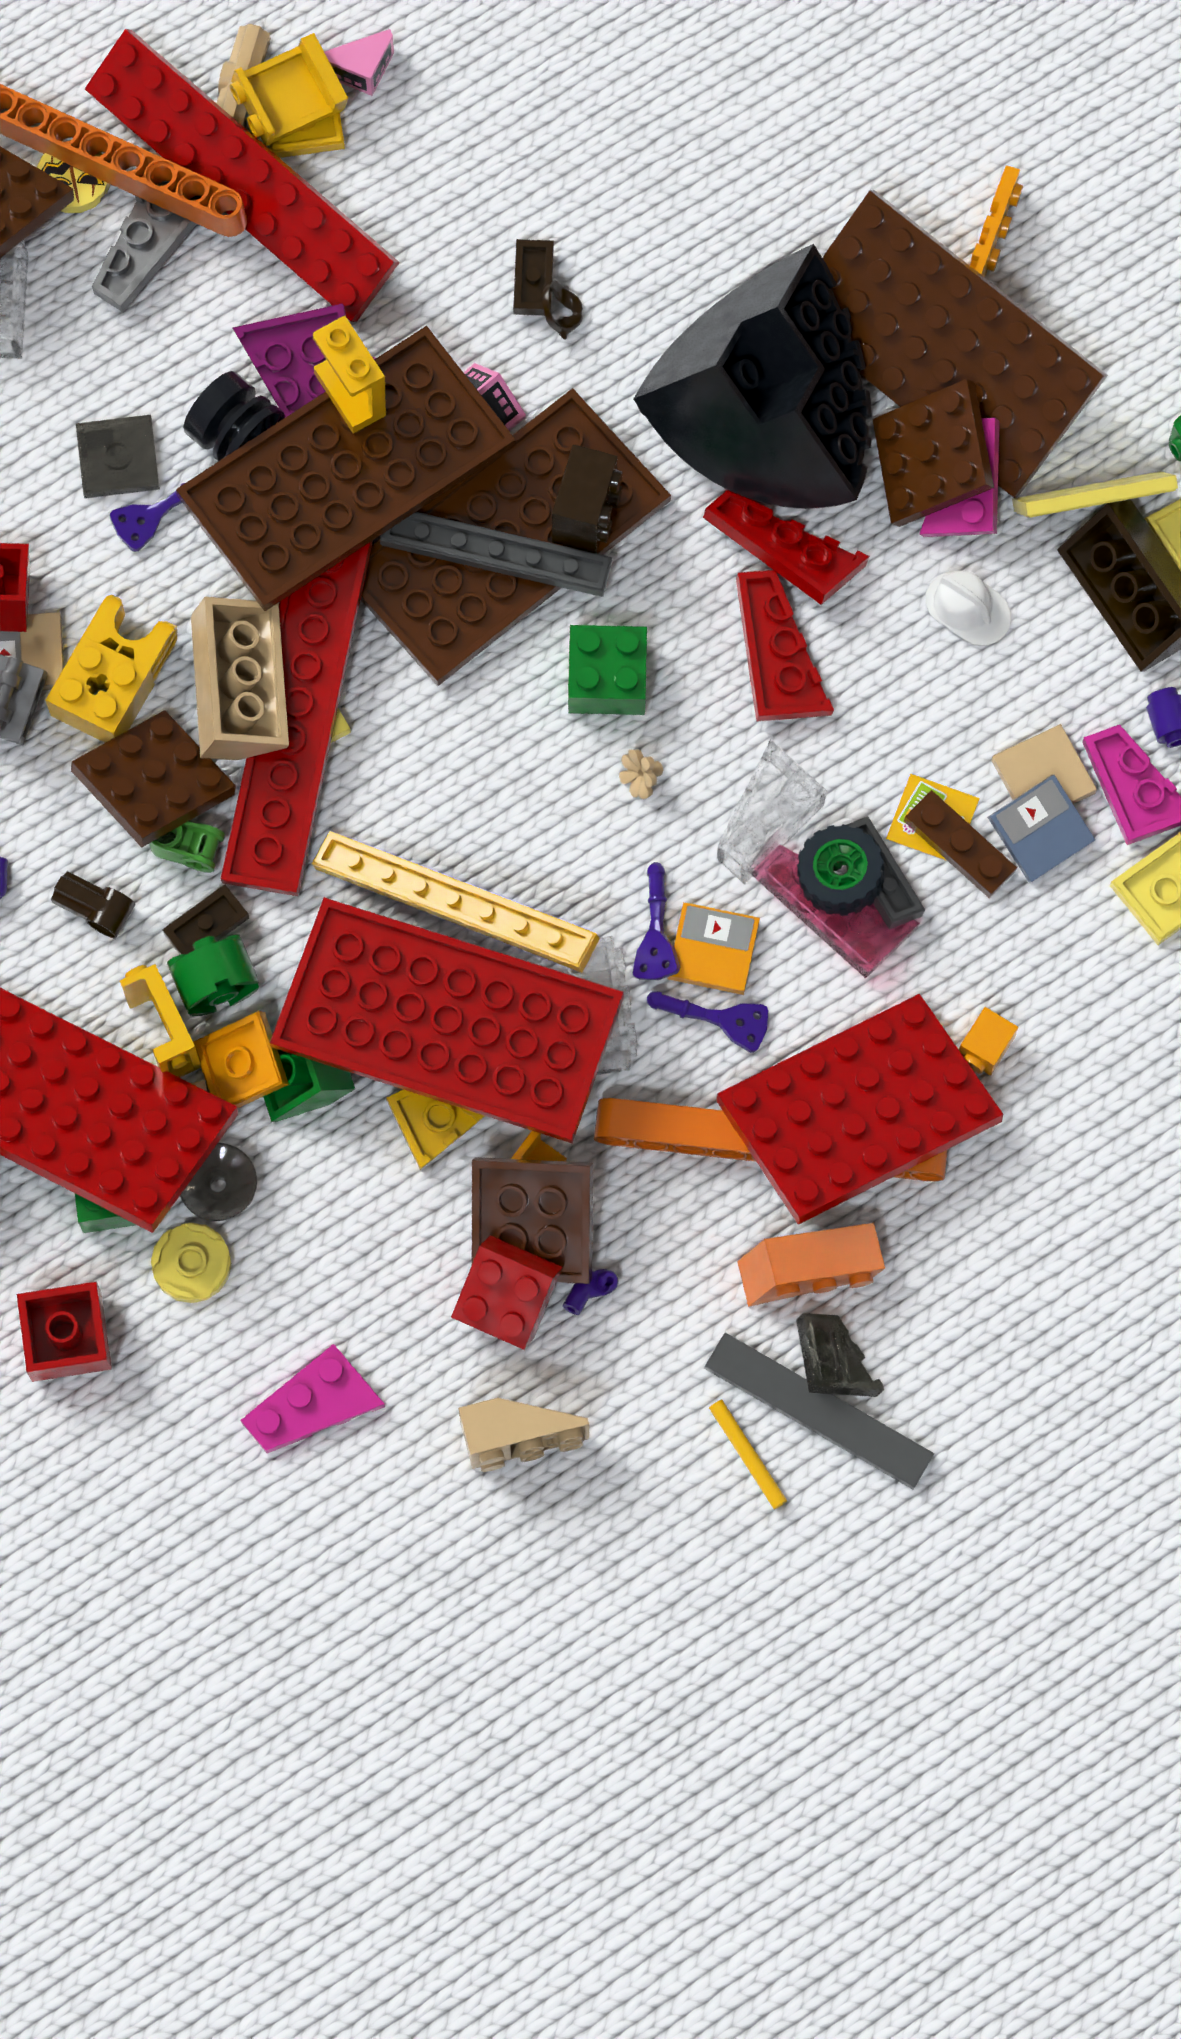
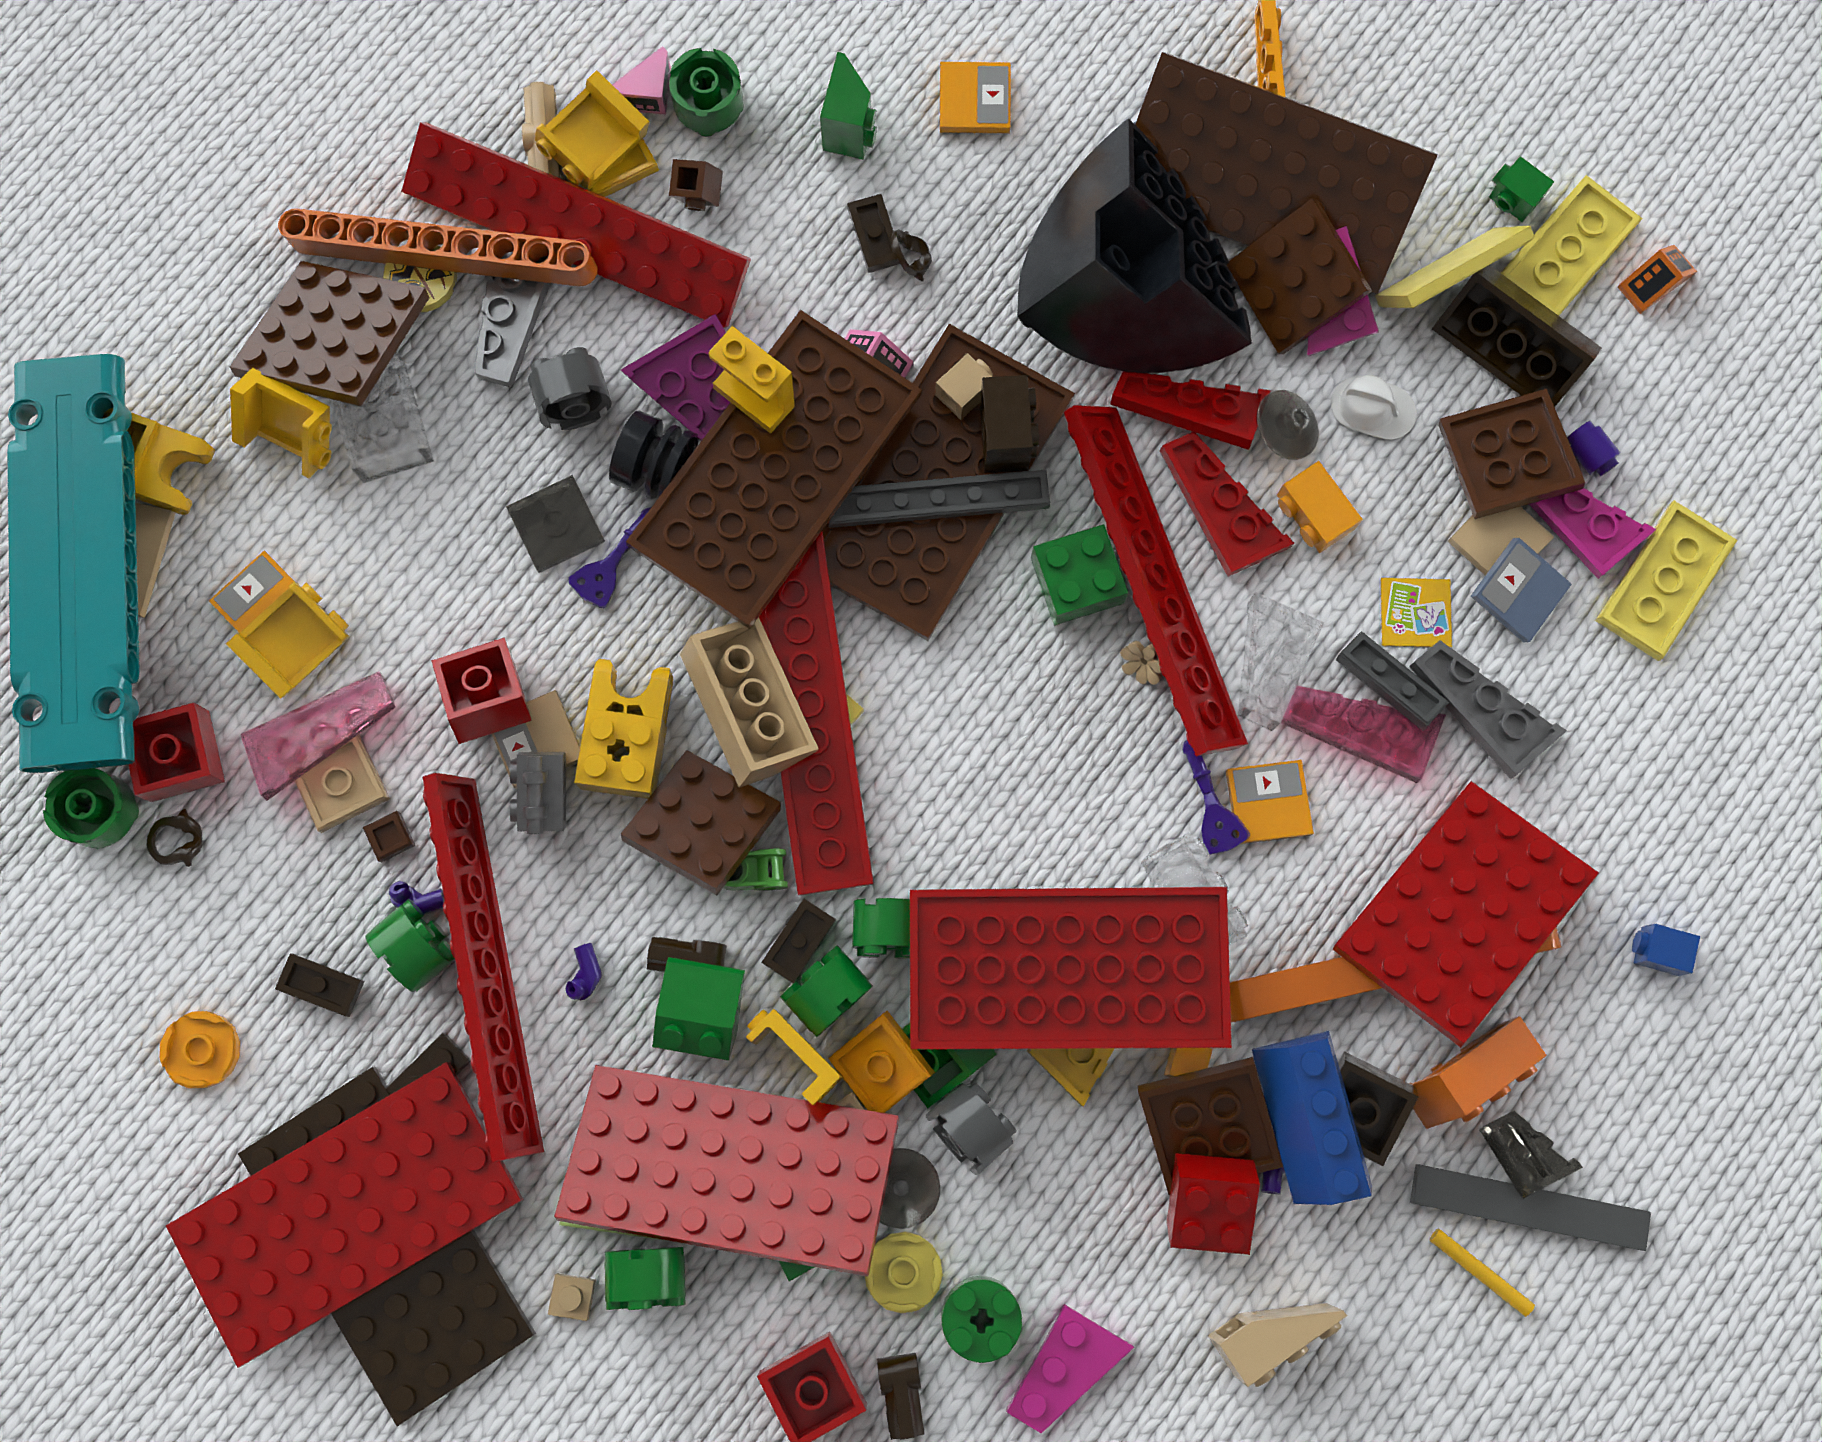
camera: 20 degrees left, 5 degrees up
(86, 948) = (698, 1008): none -> green slope
(149, 1358) = (900, 1385): none -> dark brown piece
(176, 331) = (569, 389): none -> dark grey brick
(256, 1345) = (997, 1336): none -> green brick
(285, 931) = (881, 928): none -> green brick
(304, 1145) = (971, 1126): none -> dark grey brick
(373, 173) = (695, 184): none -> reddish brown brick
(417, 86) = (706, 91): none -> green brick
(456, 901) = (1029, 845): yellow tile -> none
(545, 151) = (847, 112): none -> green slope
(554, 448) = (962, 385): none -> tan brick
(631, 1240) = (1312, 1120): none -> blue slope
(680, 697) = (1155, 580): none -> red plate
(685, 176) = (975, 97): none -> light orange tile
(687, 1255) = (1378, 1105): none -> dark brown brick
(724, 1018) = (1304, 865): dark purple piece -> none
(826, 854) = (1381, 677): black wheel -> none
(859, 595) = (1287, 425): none -> clear smoke dish
(870, 683) = (1318, 507): none -> light orange brick
(960, 844) = (1454, 627): reddish brown plate -> none
(967, 943) = (1498, 722): none -> flat silver wing
(987, 1041) = (1550, 805): light orange brick -> none
(1046, 1214) = (1665, 949): none -> blue brick
(1081, 693) = (1511, 453): none -> reddish brown plate

